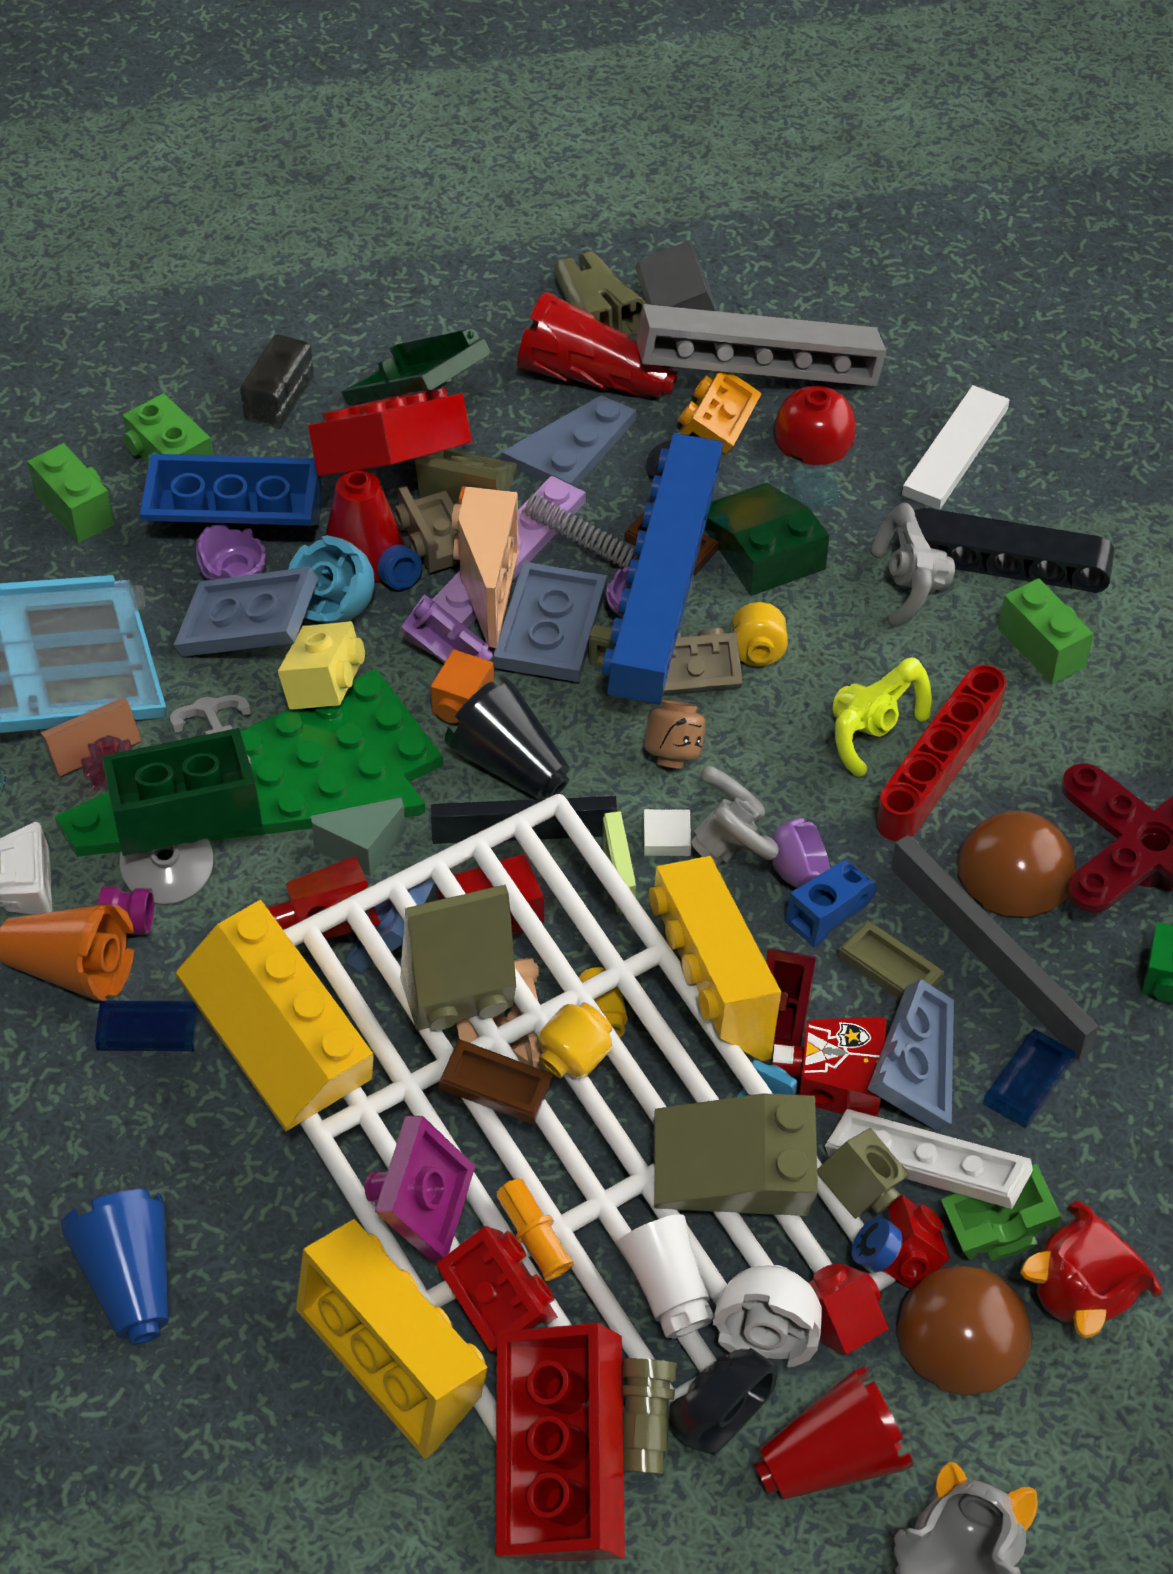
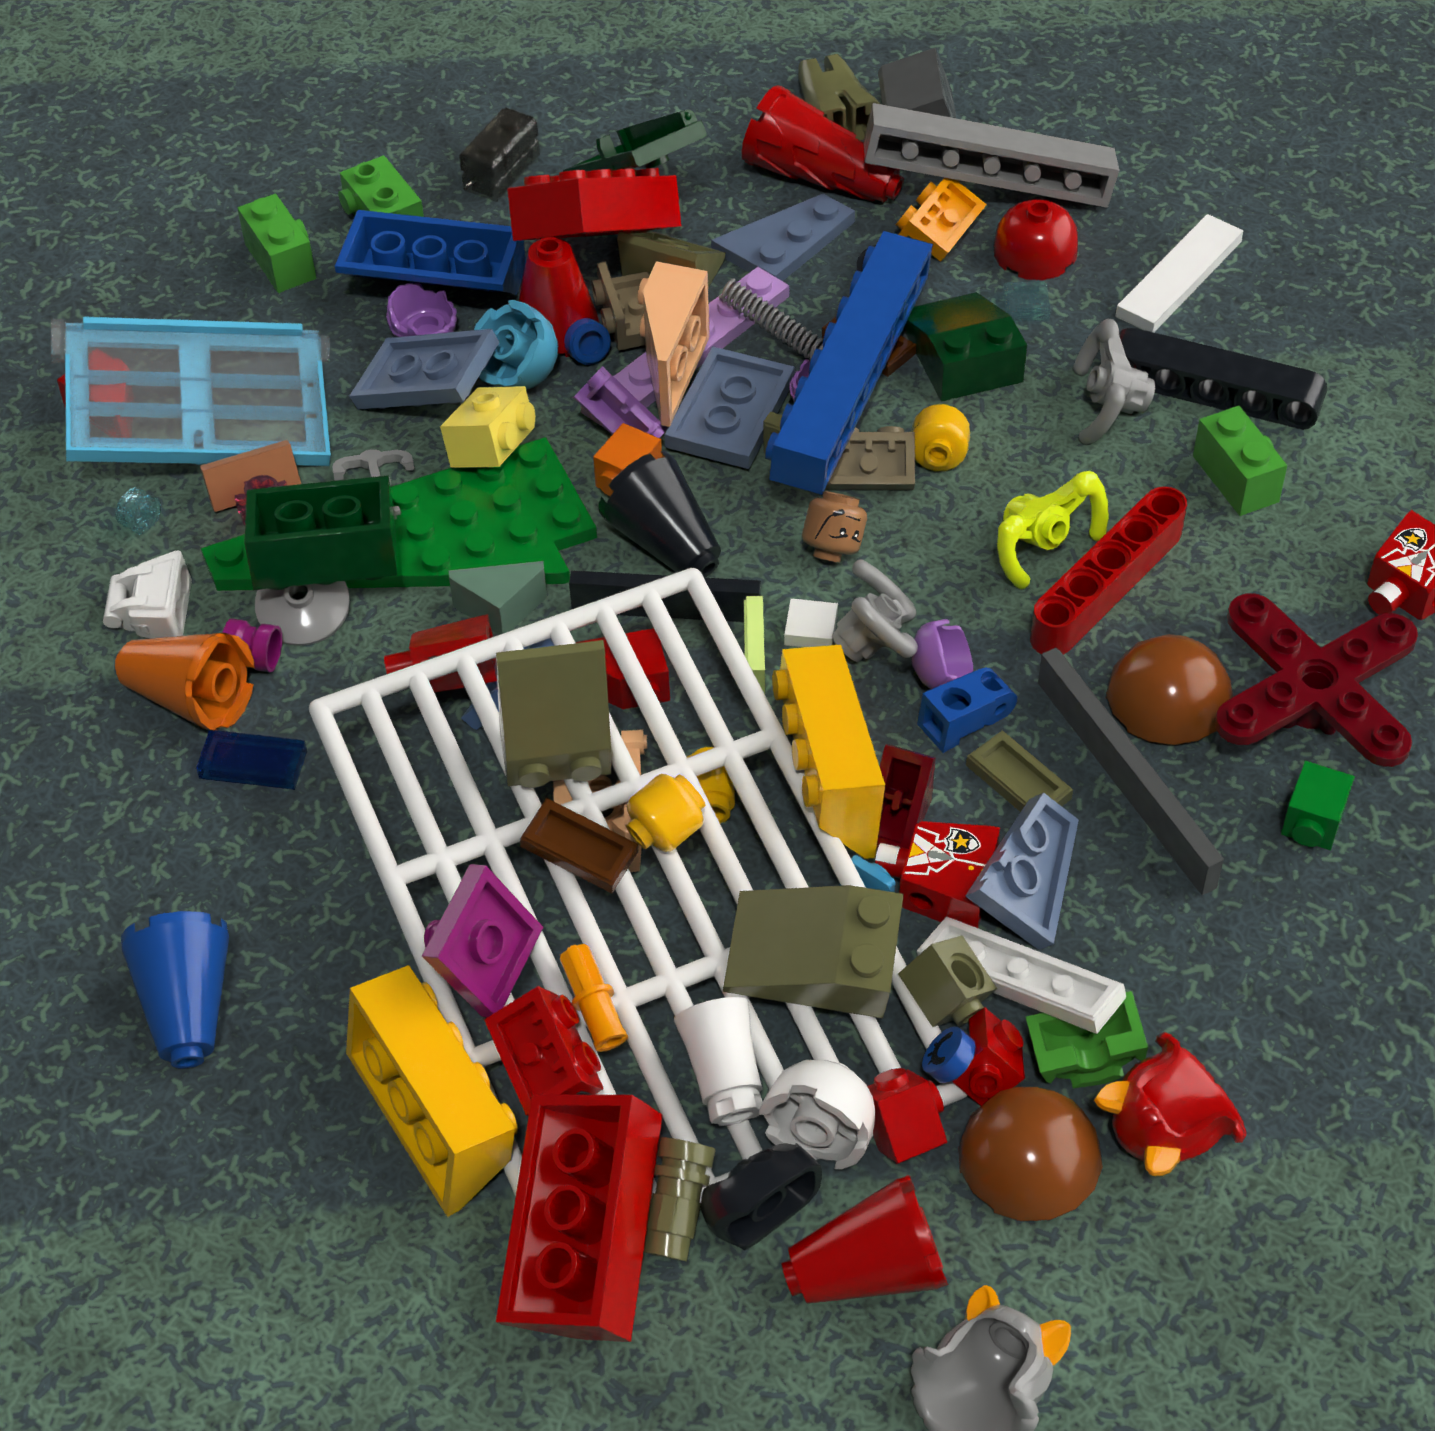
camera: 10 degrees right, 0 degrees up
(275, 1016) = (363, 755): yellow slope -> none
(1029, 1078) = (1145, 907): clear blue tile -> none

